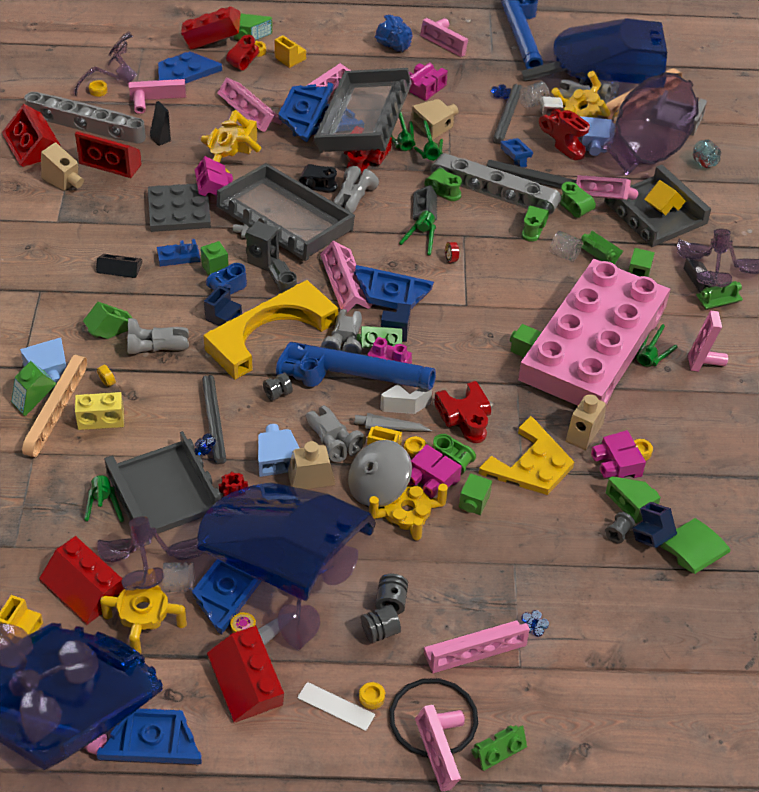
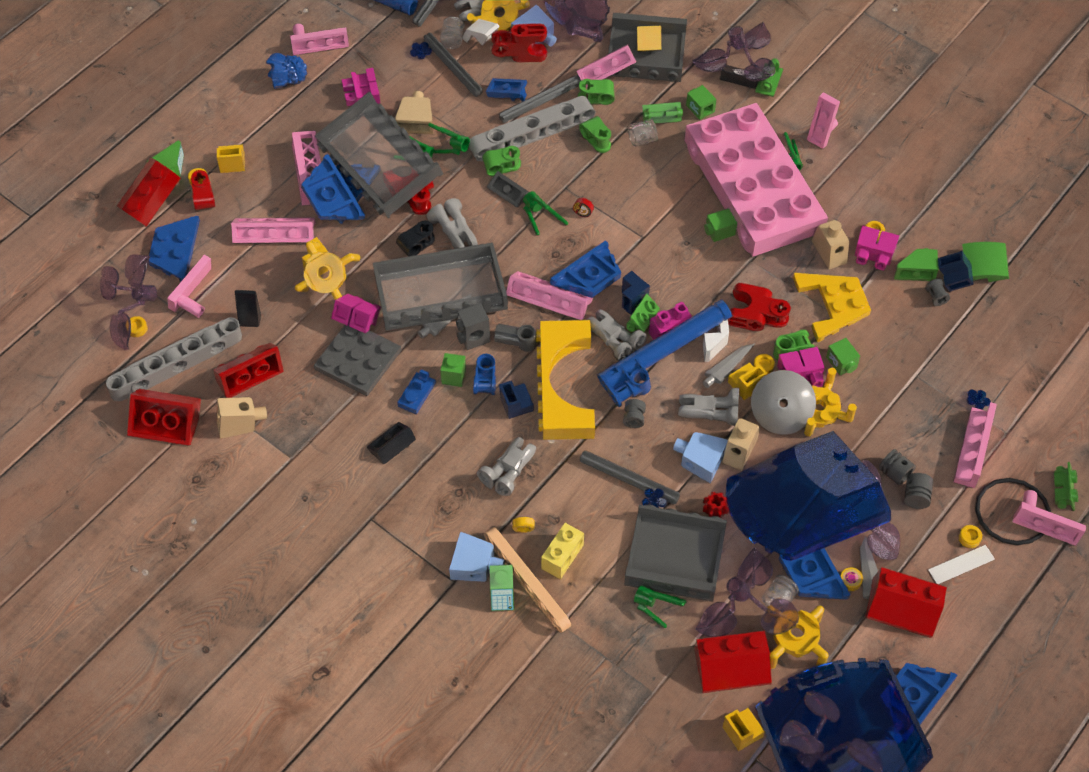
camera: 50 degrees left, 10 degrees up
(106, 321) = (461, 488): bright green slope -> none

